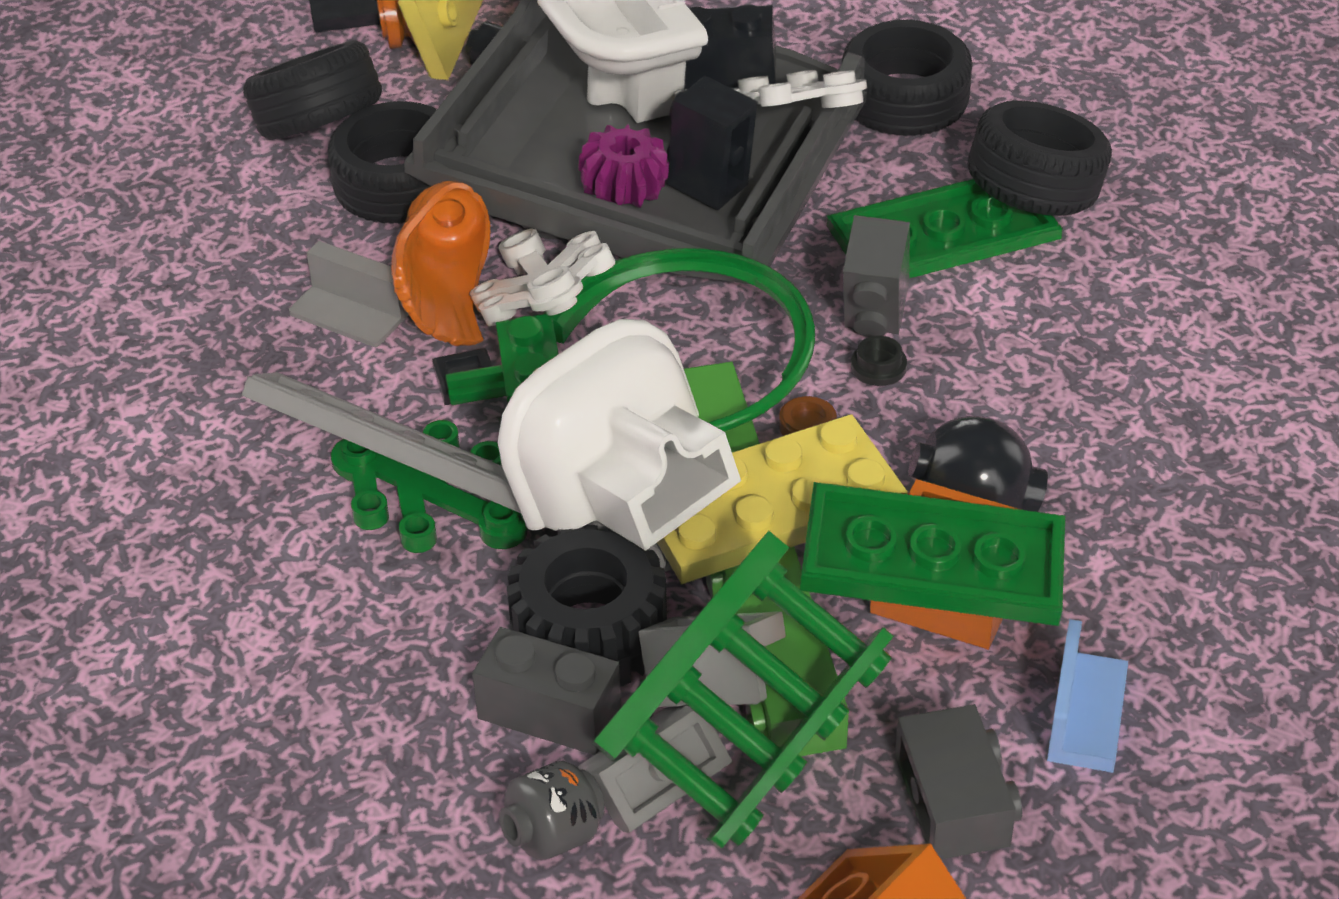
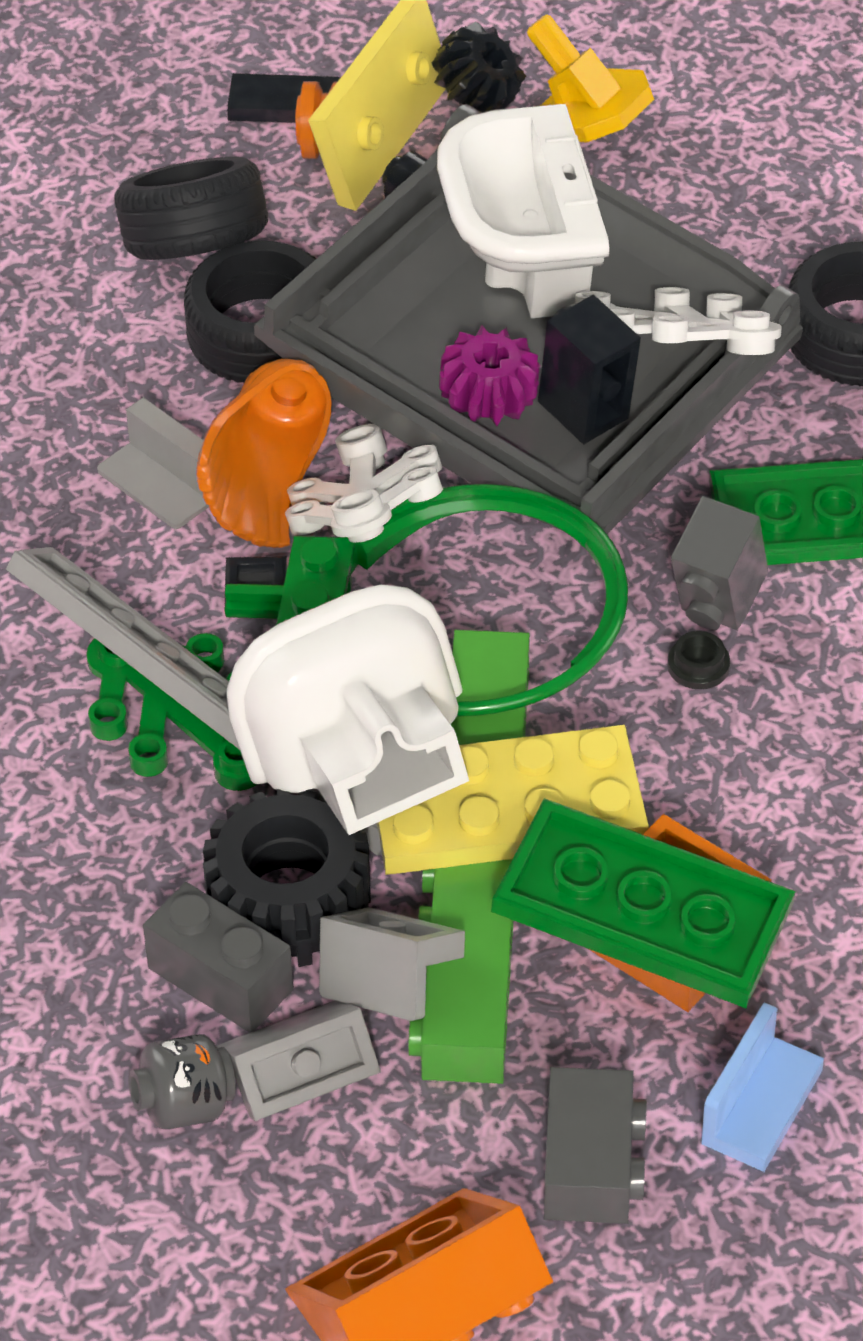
camera: 15 degrees right, 5 degrees up
(679, 681) = (330, 982): green fence -> none
(737, 46) = (656, 245): black brick -> none
(804, 413) = (596, 708): dark orange tile -> none
(981, 460) = (748, 811): black brick -> none

